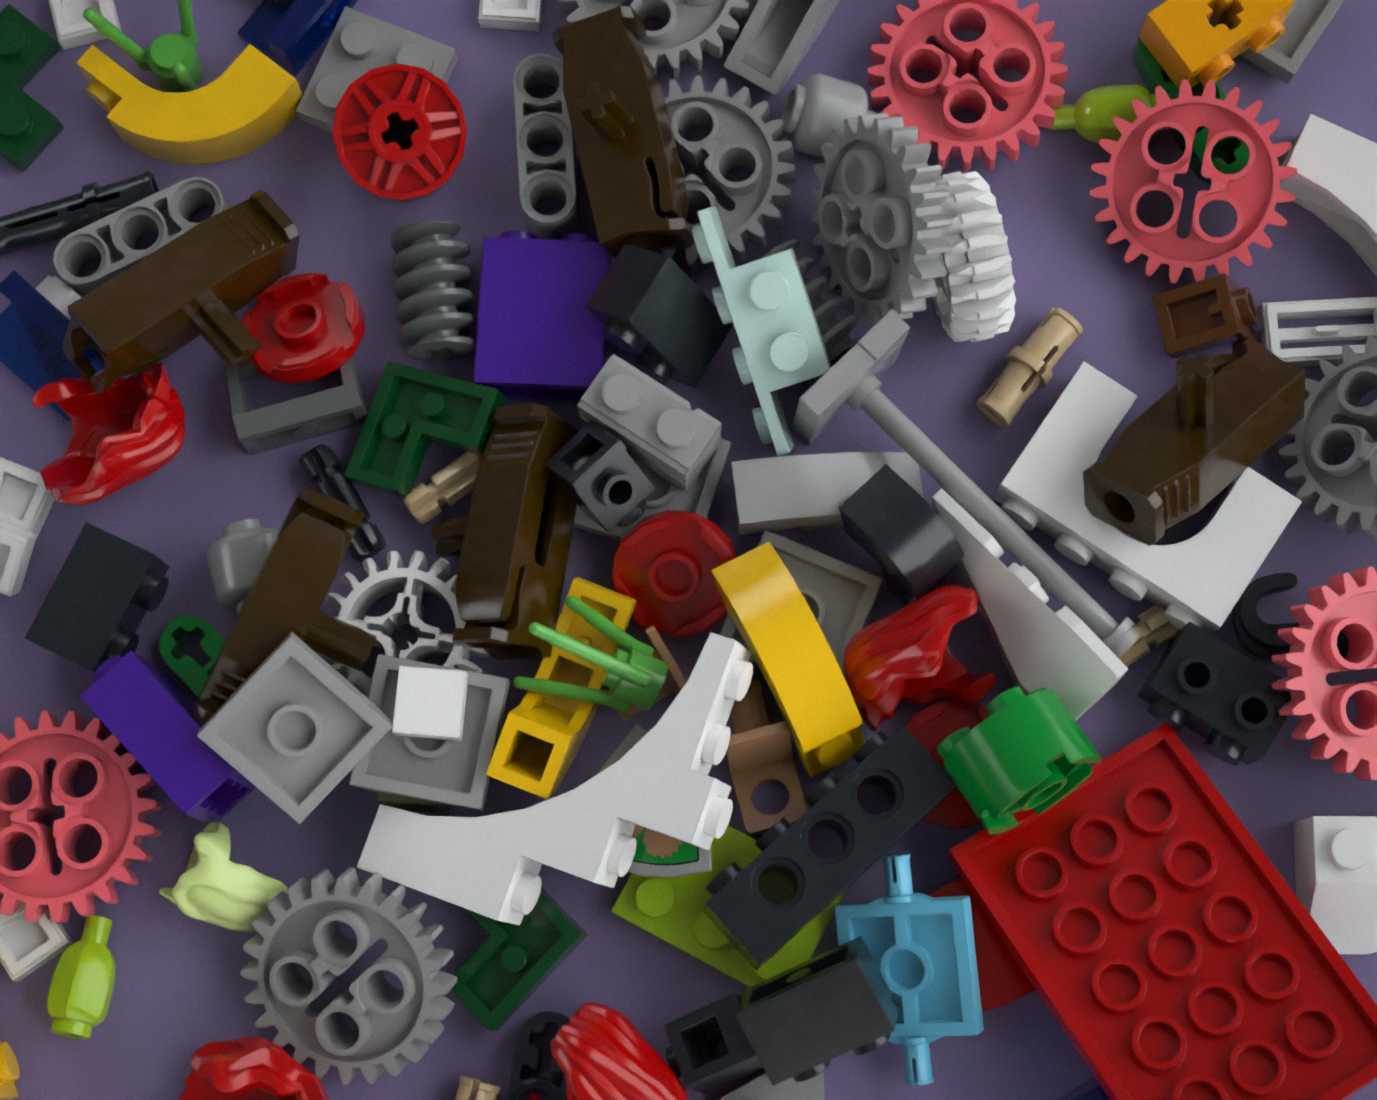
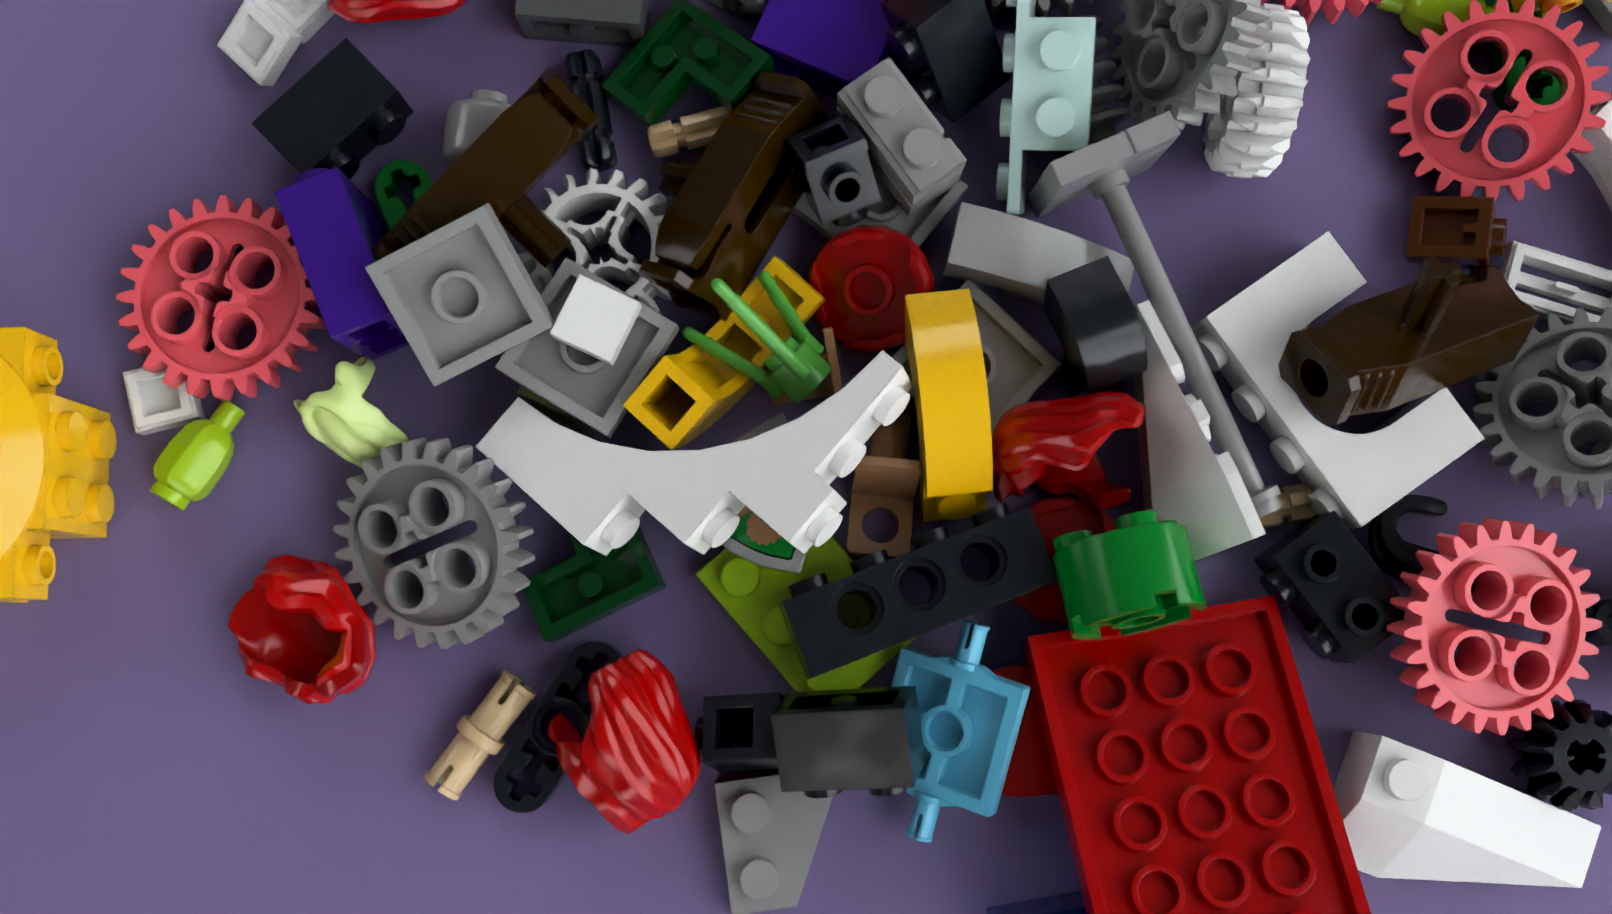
camera: 15 degrees right, 5 degrees up
(1029, 366) = (1271, 219): tan pin -> none

